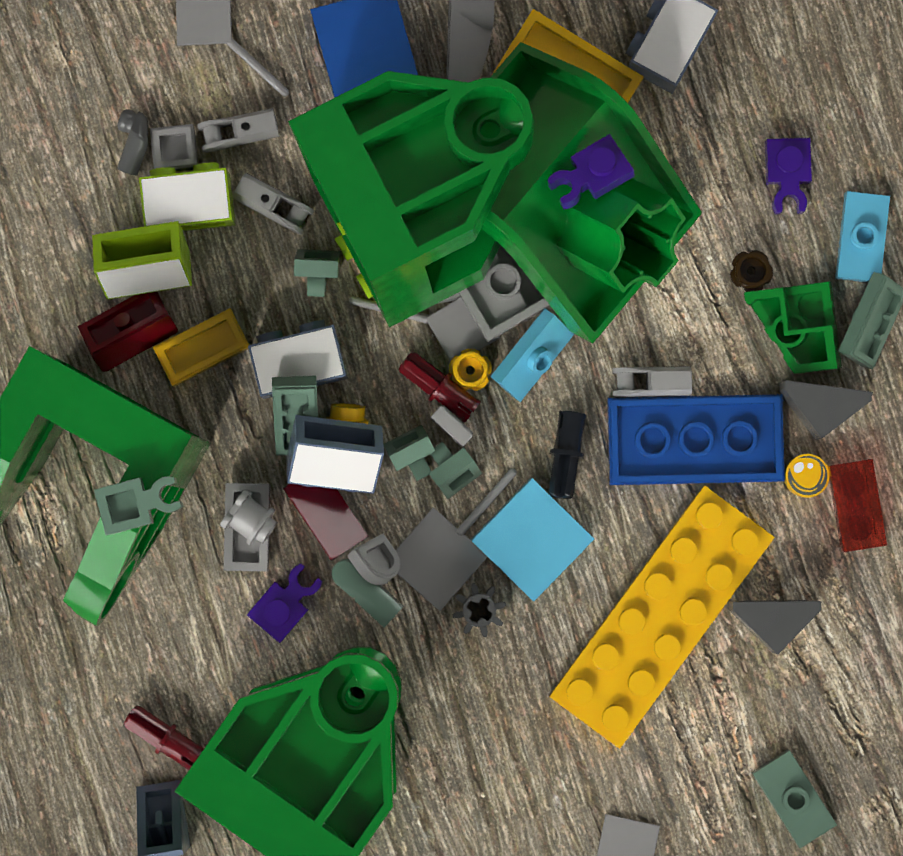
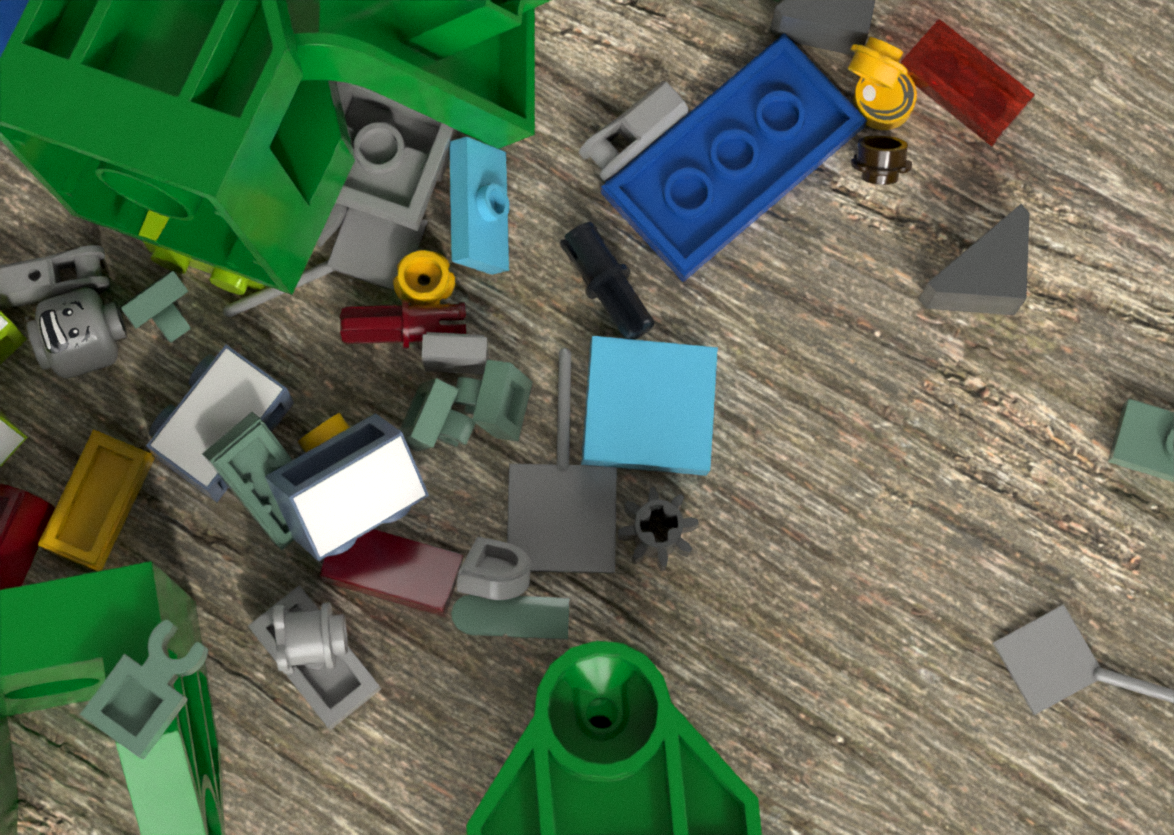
camera: 45 degrees left, 10 degrees down
(262, 248) = (76, 333): none -> light grey head
(281, 608) = (431, 718): dark purple plate -> none
(661, 616) = (863, 376): yellow plate -> none
(772, 509) = (881, 159): none -> dark brown plate
(814, 457) = (877, 62): none -> yellow plate

